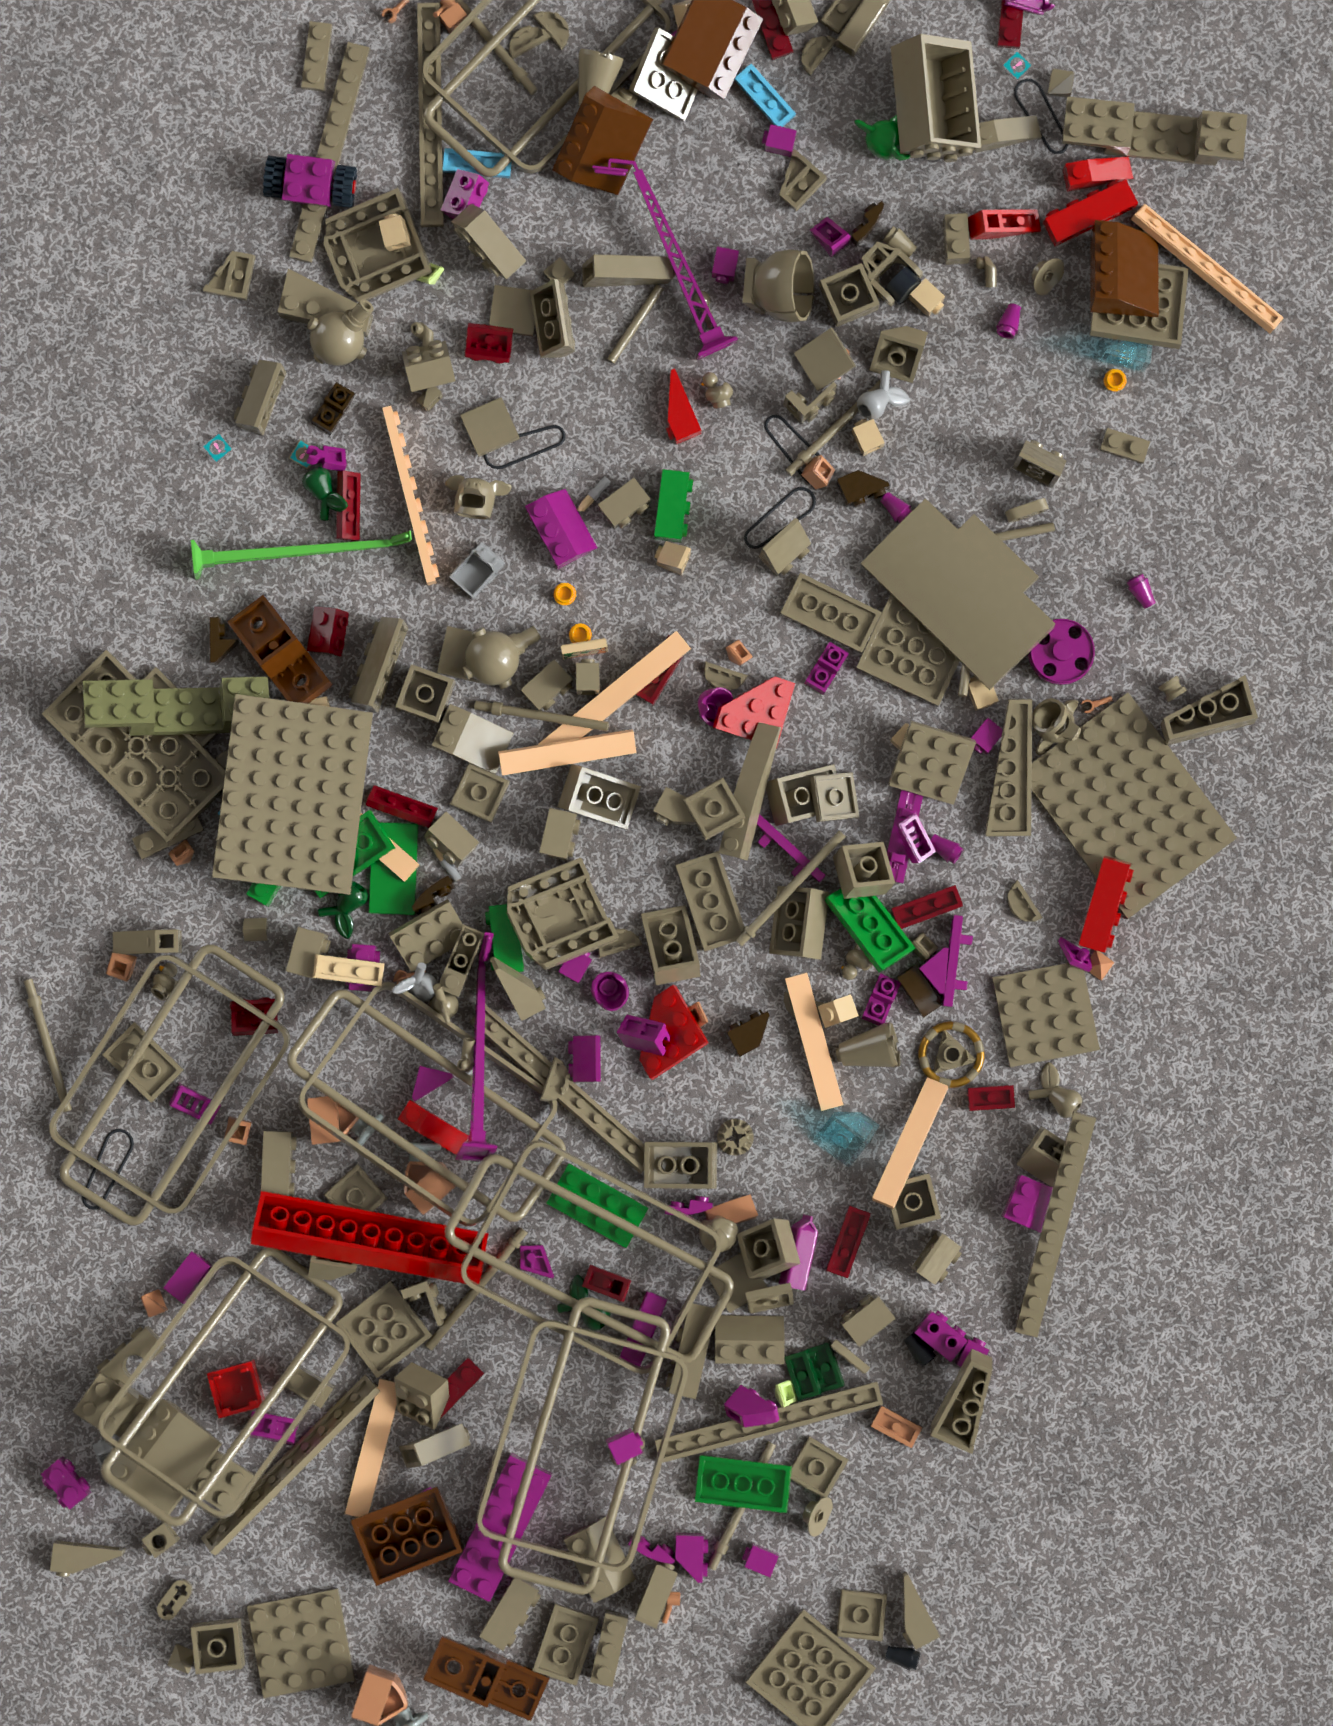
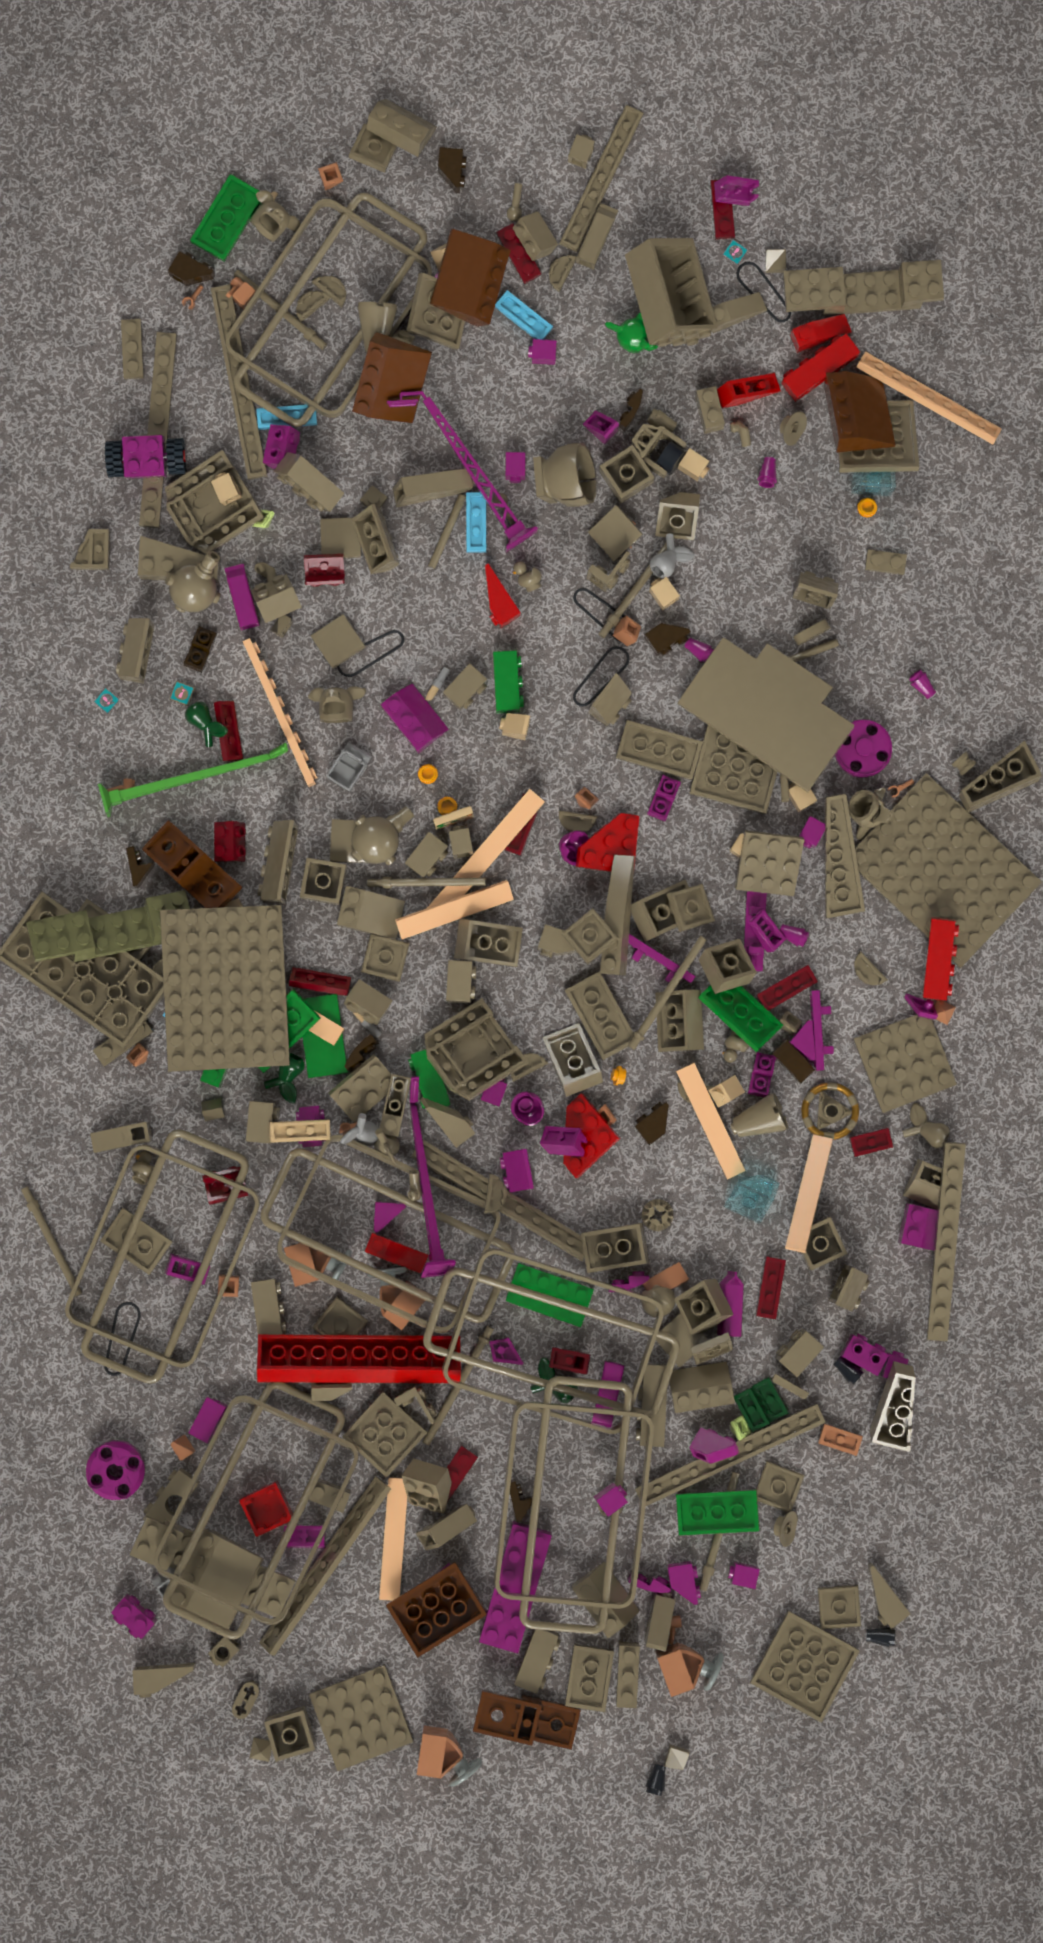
camera: 10 degrees left, 0 degrees up
(57, 1305) = (99, 1464): none -> magenta piece
(121, 966) = (103, 1161): nougat slope -> none
(225, 545) = (127, 783): none -> nougat hand
(330, 457) = (204, 691): magenta plate -> none
(390, 357) = (241, 597): none -> magenta piece
(522, 1436) = (521, 1505): none -> dark brown slope
(669, 320) = (475, 522): none -> medium azure plate
(672, 1650) = (684, 1665): none -> nougat piece
(719, 972) = (618, 1075): none -> light orange plate
(801, 181) = (567, 384): dark tan wing -> none

